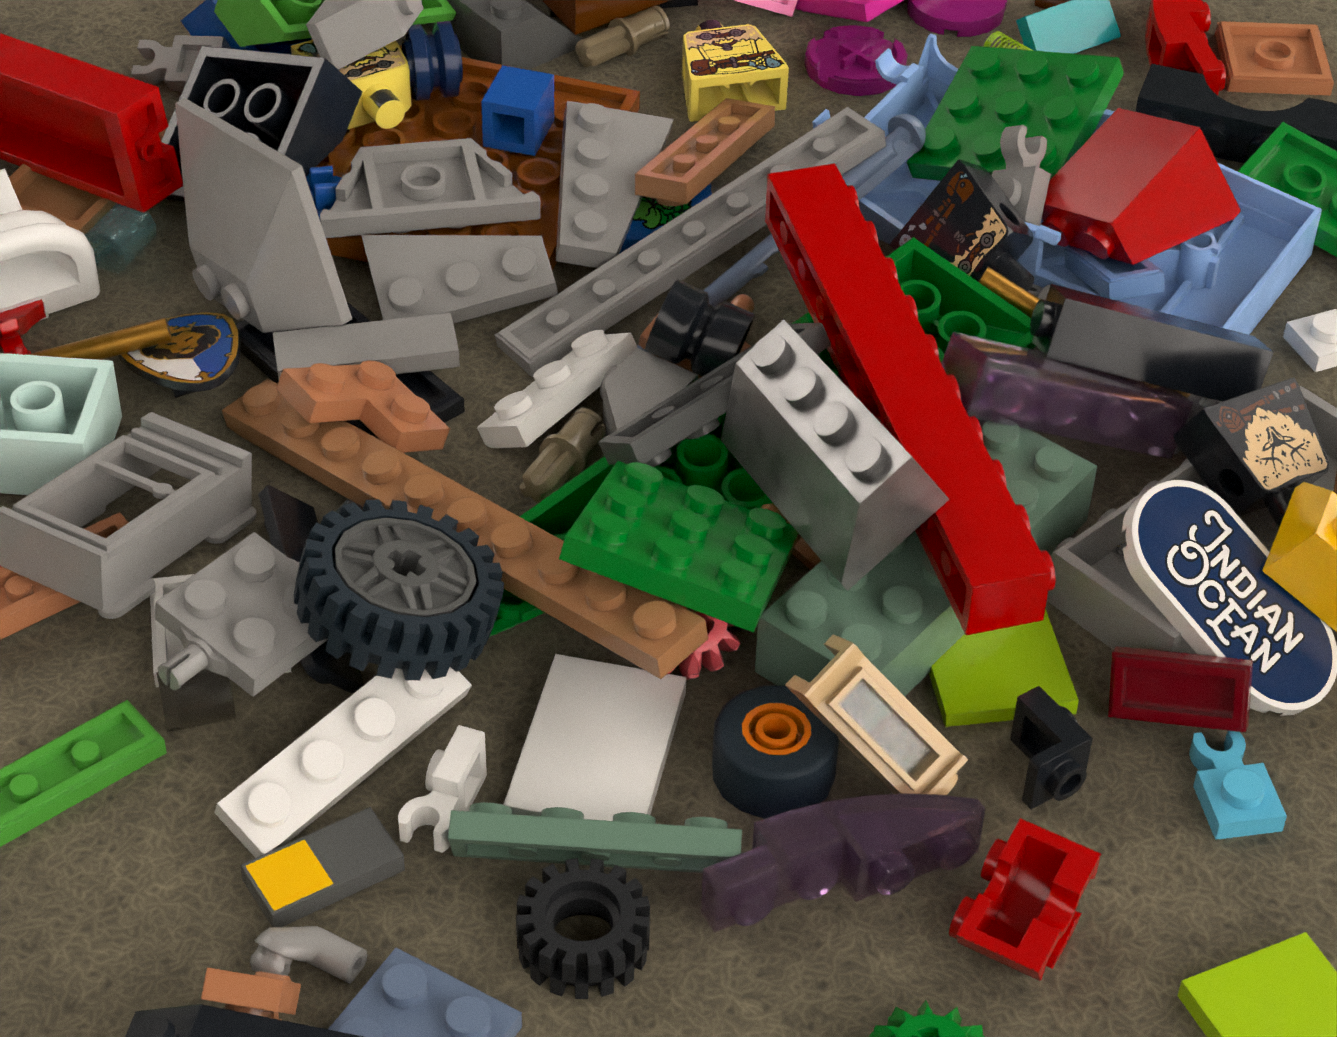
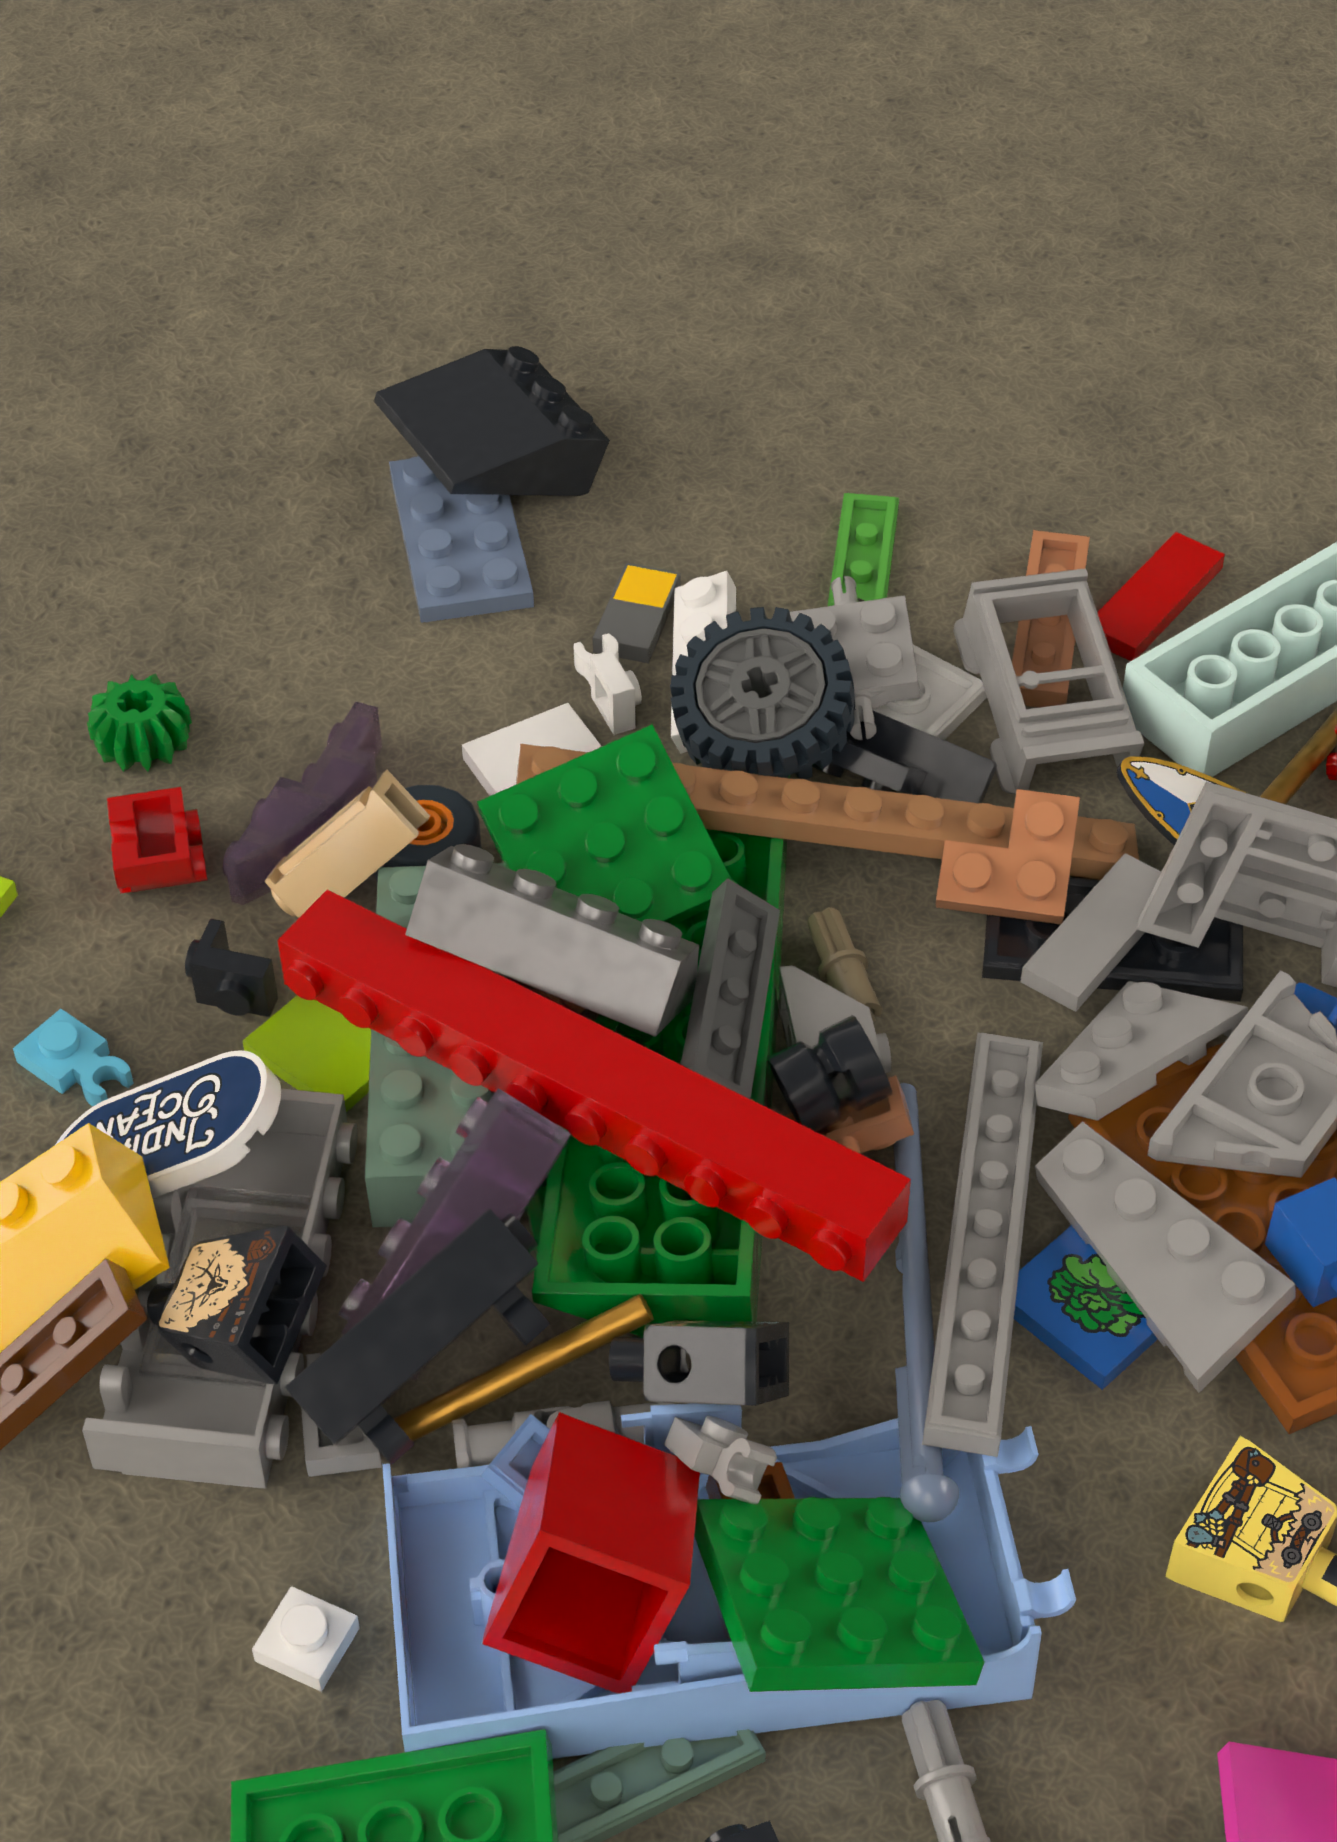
camera: 140 degrees right, 5 degrees up
(256, 994) = (556, 483): nougat plate -> none
(307, 944) = (589, 567): light grey arm -> none
(556, 390) = (920, 1023): white plate -> none
(564, 834) = (476, 707): sand green plate -> none
(590, 961) = (433, 691): black tyre -> none
(704, 151) = (1123, 1373): medium nougat plate -> none
(847, 57) = (1174, 1711): magenta tile -> none
(1180, 688) = (127, 1076): dark red tile -> none

